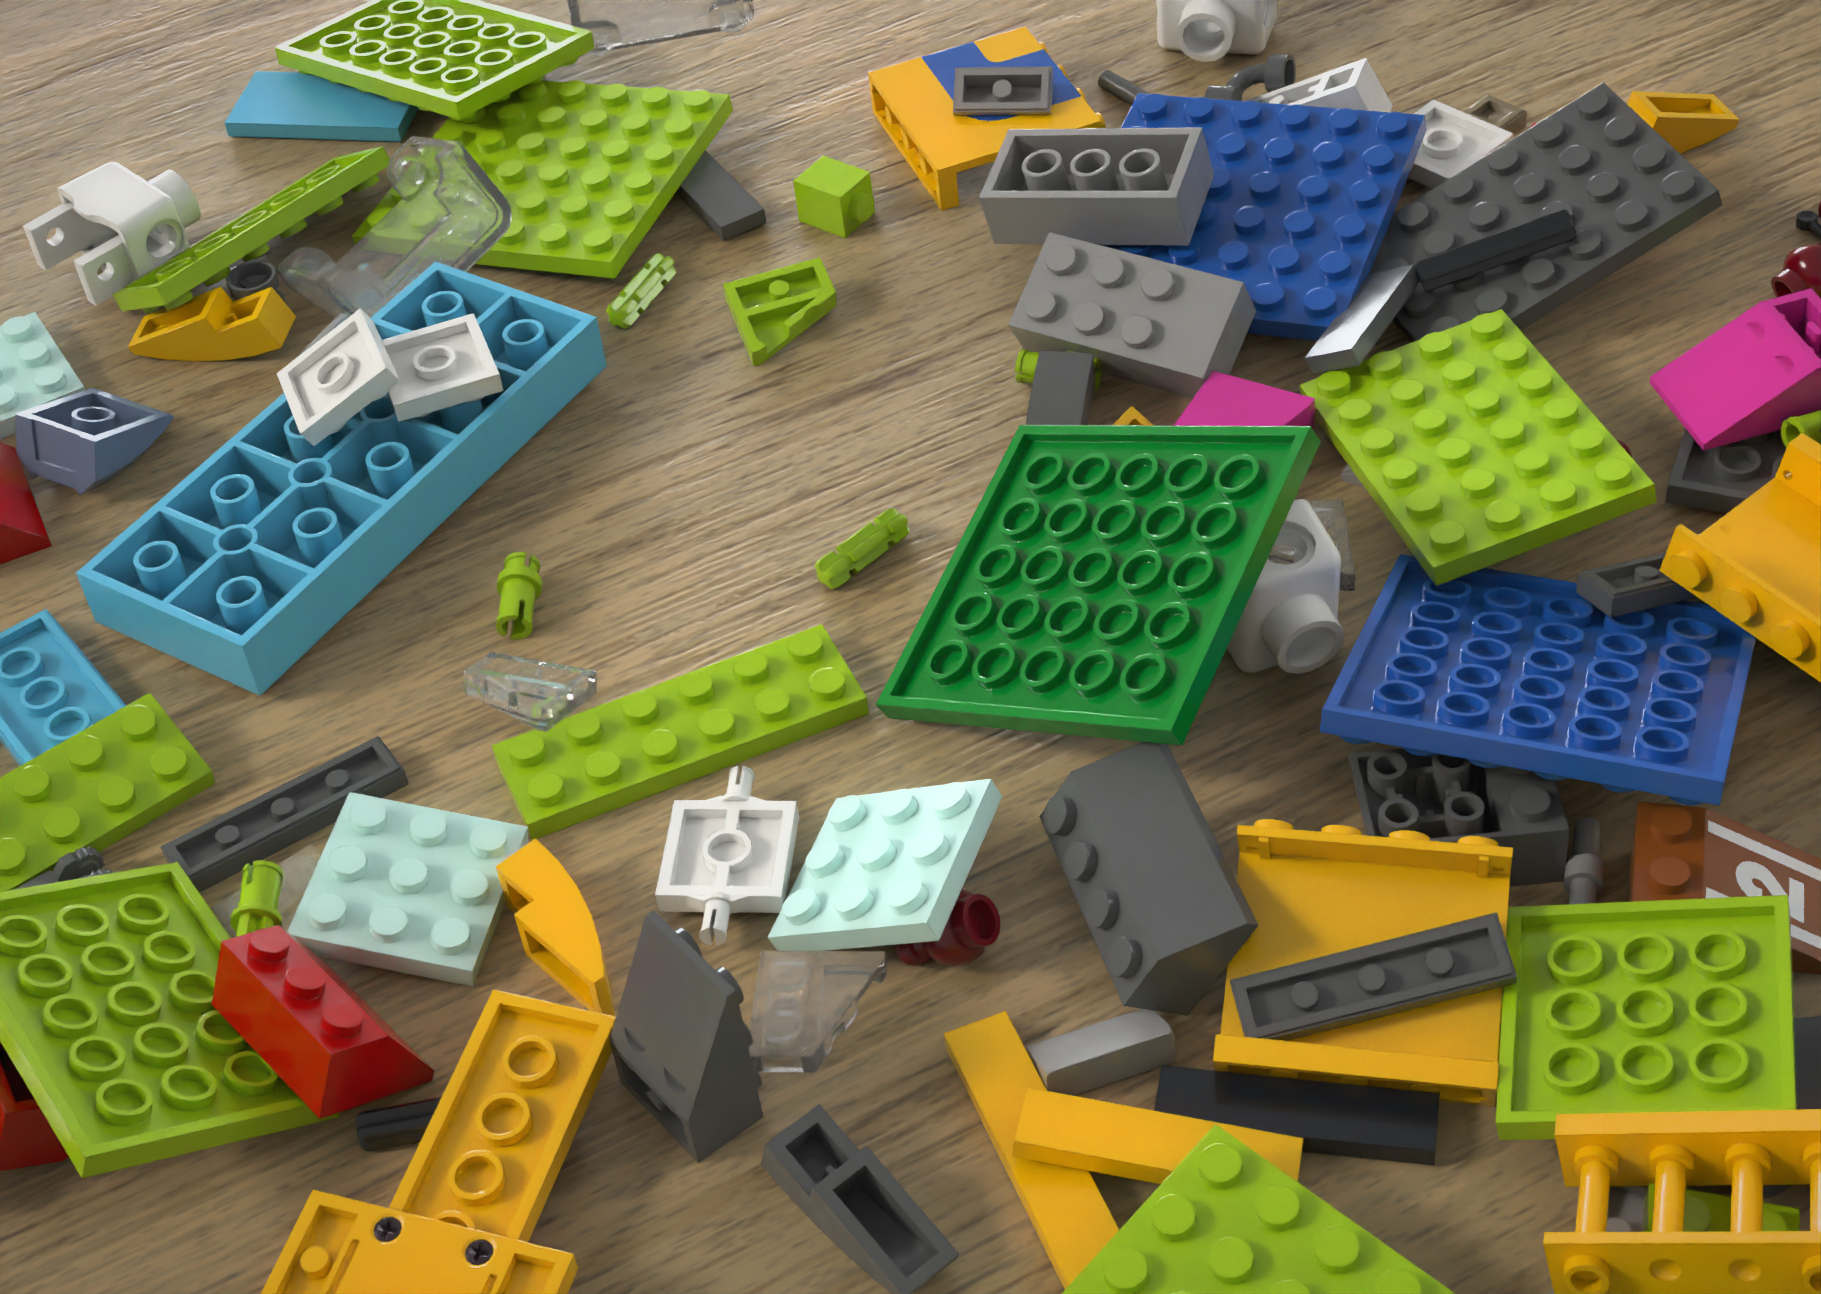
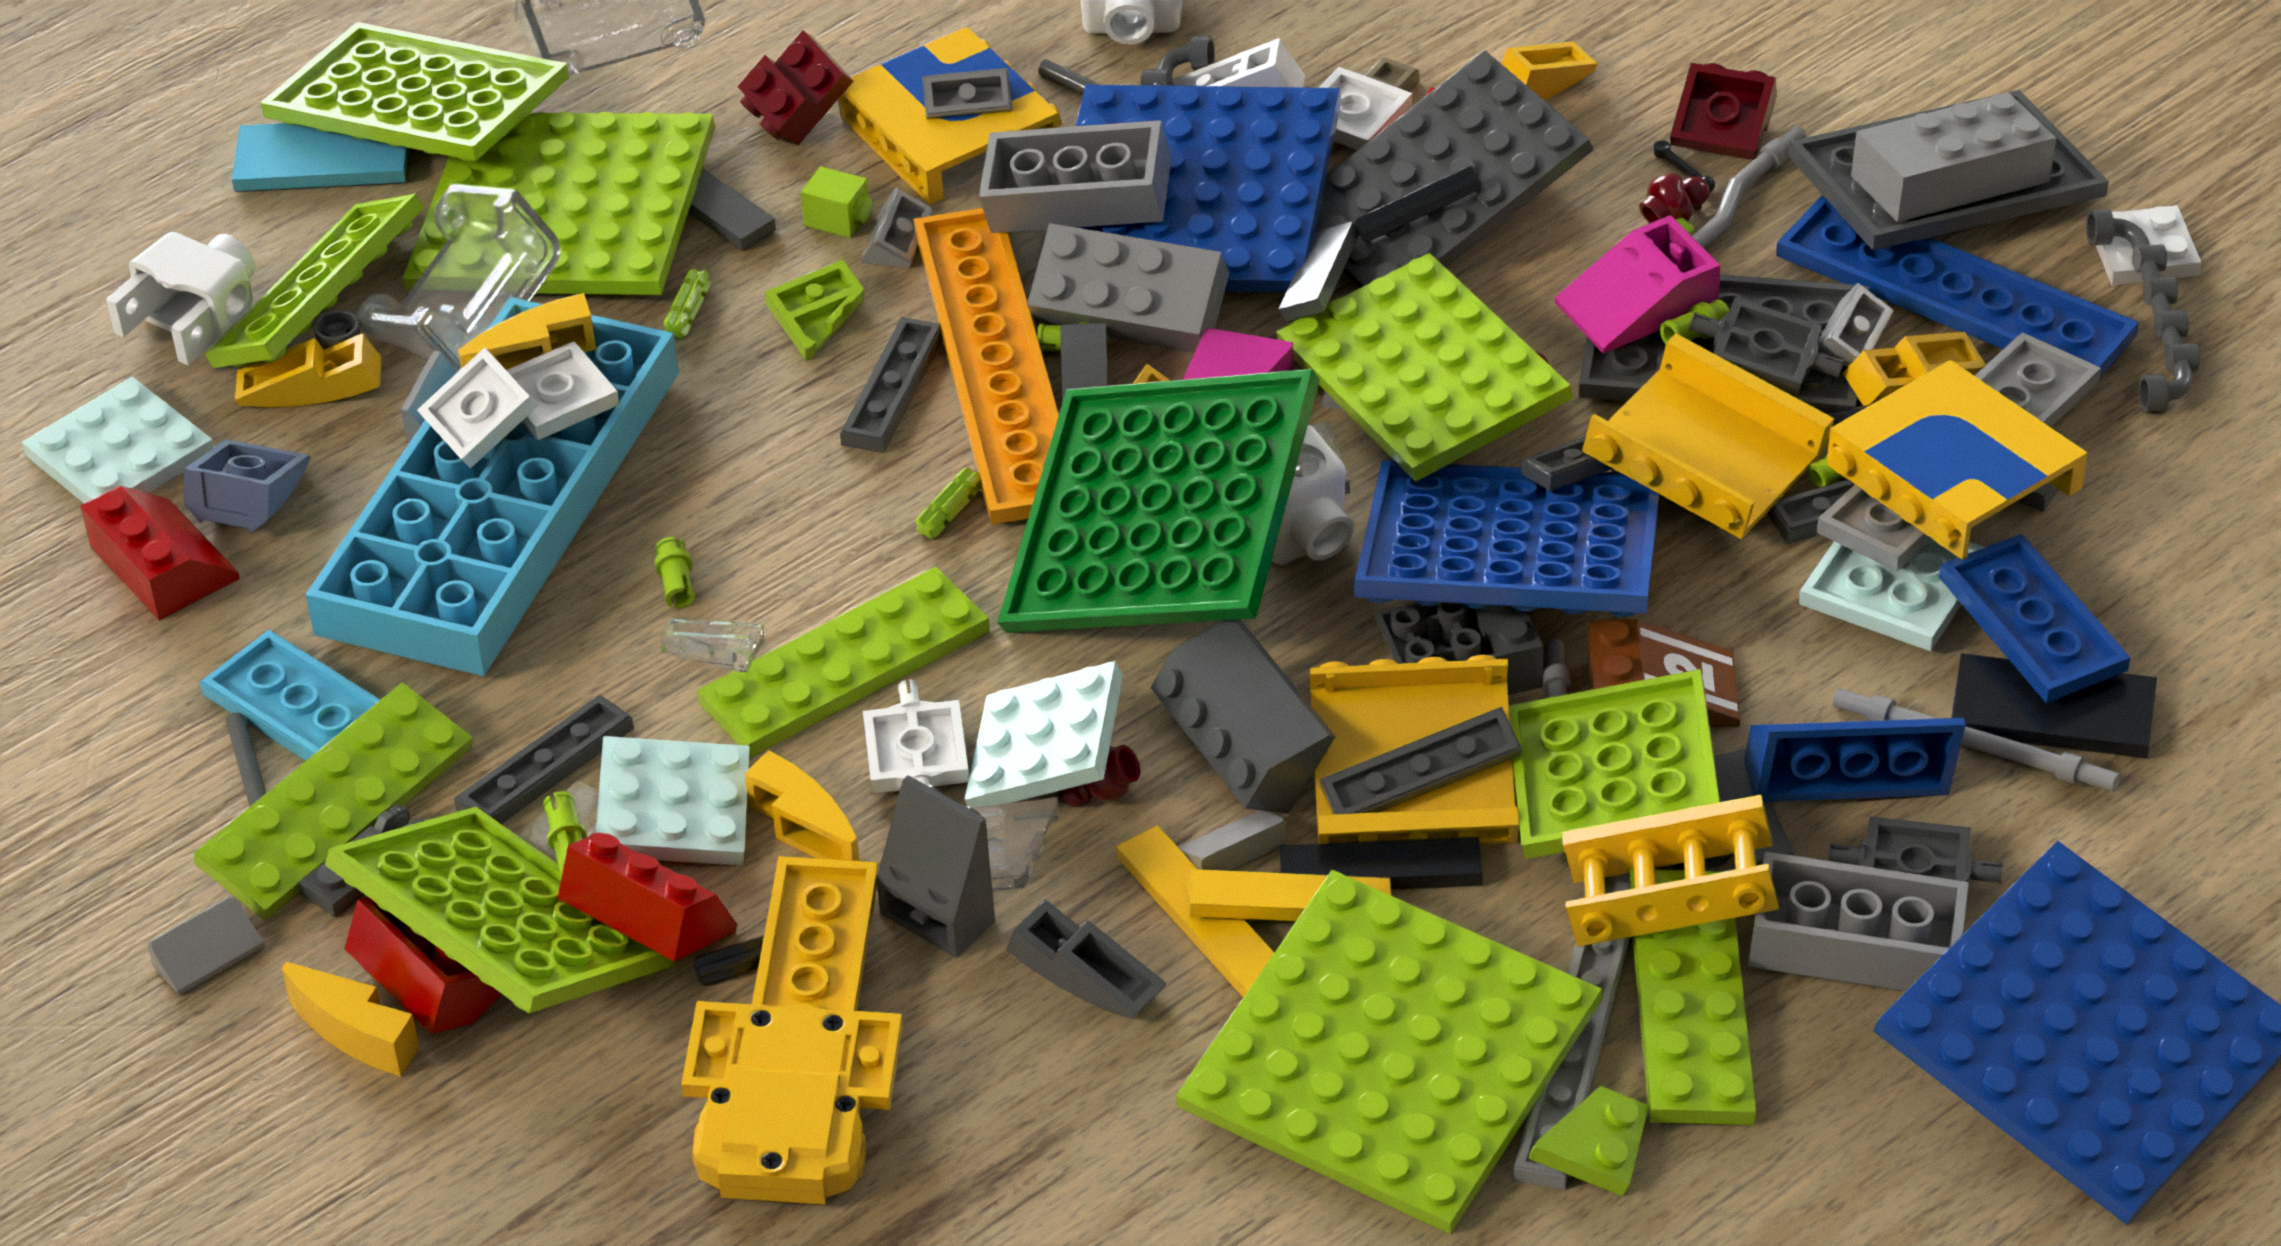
camera: 15 degrees left, 0 degrees up
(435, 299) = (535, 333): none -> yellow slope
(823, 79) = (794, 89): none -> dark red plate
(838, 404) = (892, 385): none -> dark grey tile
(896, 234) = (894, 235): none -> light grey slope
(957, 383) = (990, 356): none -> light orange plate

